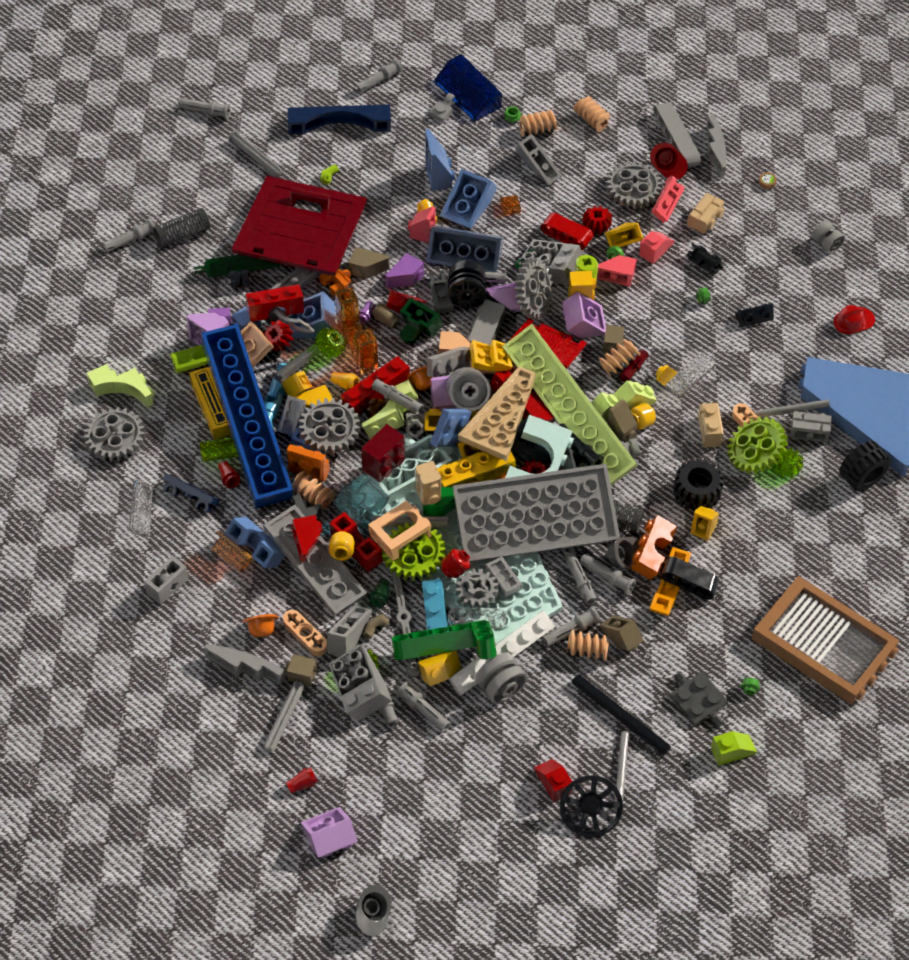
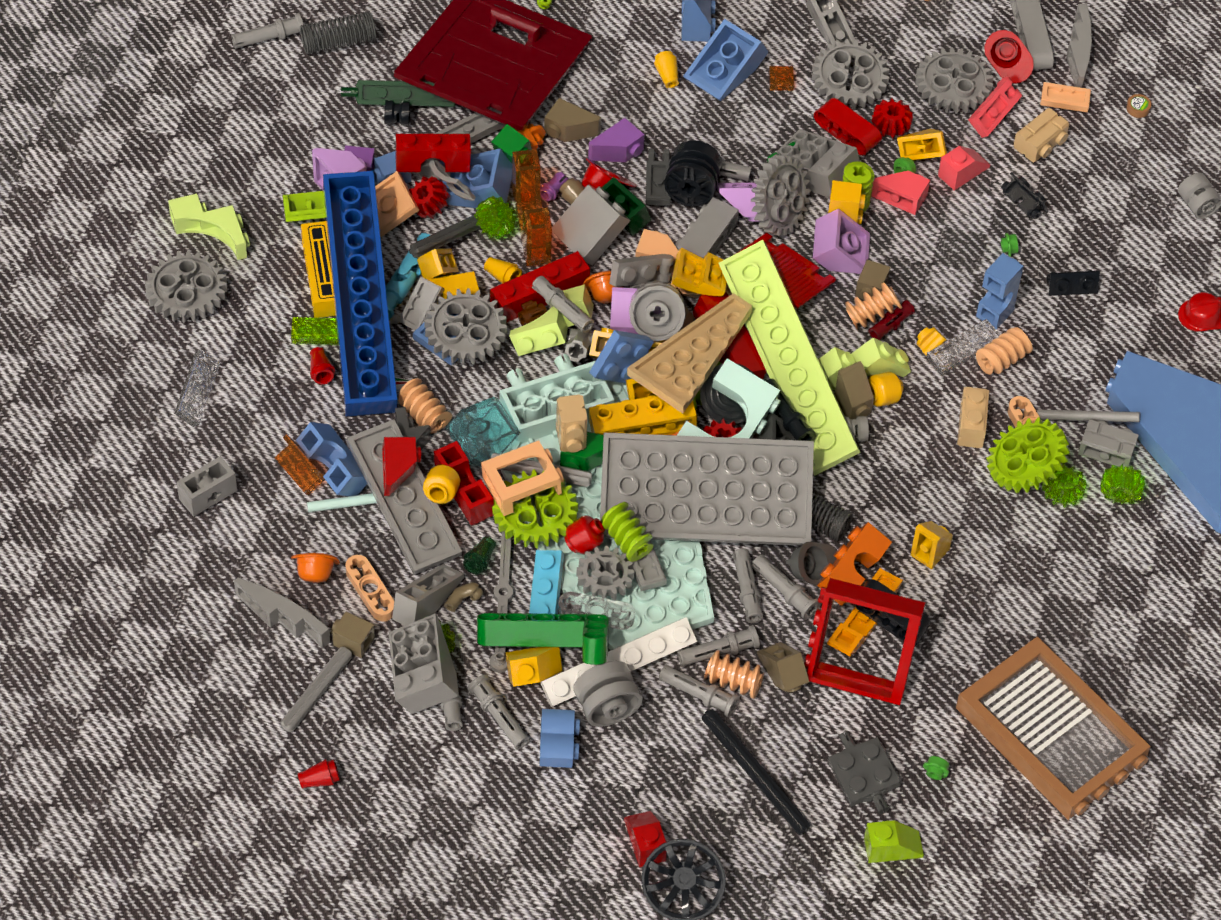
camera: 10 degrees right, 0 degrees up
(190, 492) = (265, 378): dark blue plate -> none
(268, 573) = (341, 502): none -> light aqua bar
(306, 460) = (430, 368): orange plate -> none
(329, 285) = (510, 141): none -> green brick
(329, 832) = (338, 847): lavender slope -> none
(383, 453) = (523, 373): dark red brick -> none
(402, 334) = (591, 223): none -> light grey brick
(421, 224) = (656, 85): coral slope -> none
(455, 245) = (688, 118): sand blue slope -> none
(471, 718) = (557, 738): none -> medium blue brick
(486, 556) = (624, 531): none -> lime piece
(574, 664) = (710, 695): none -> light grey pin
(575, 193) = (872, 77): none -> light grey gear
(622, 763) = (740, 838): light grey bar -> none
(676, 633) = (852, 680): none -> red window
(702, 473) = (936, 476): black tyre -> none
(709, 328) = (1002, 283): none -> medium blue arch
(715, 183) = (1065, 97): none -> light nougat plate
(720, 373) = (1004, 351): none -> light nougat piece
(829, 453) = (1122, 484): none -> clear neon green gear
(865, 465) = (1165, 509): black tyre -> none

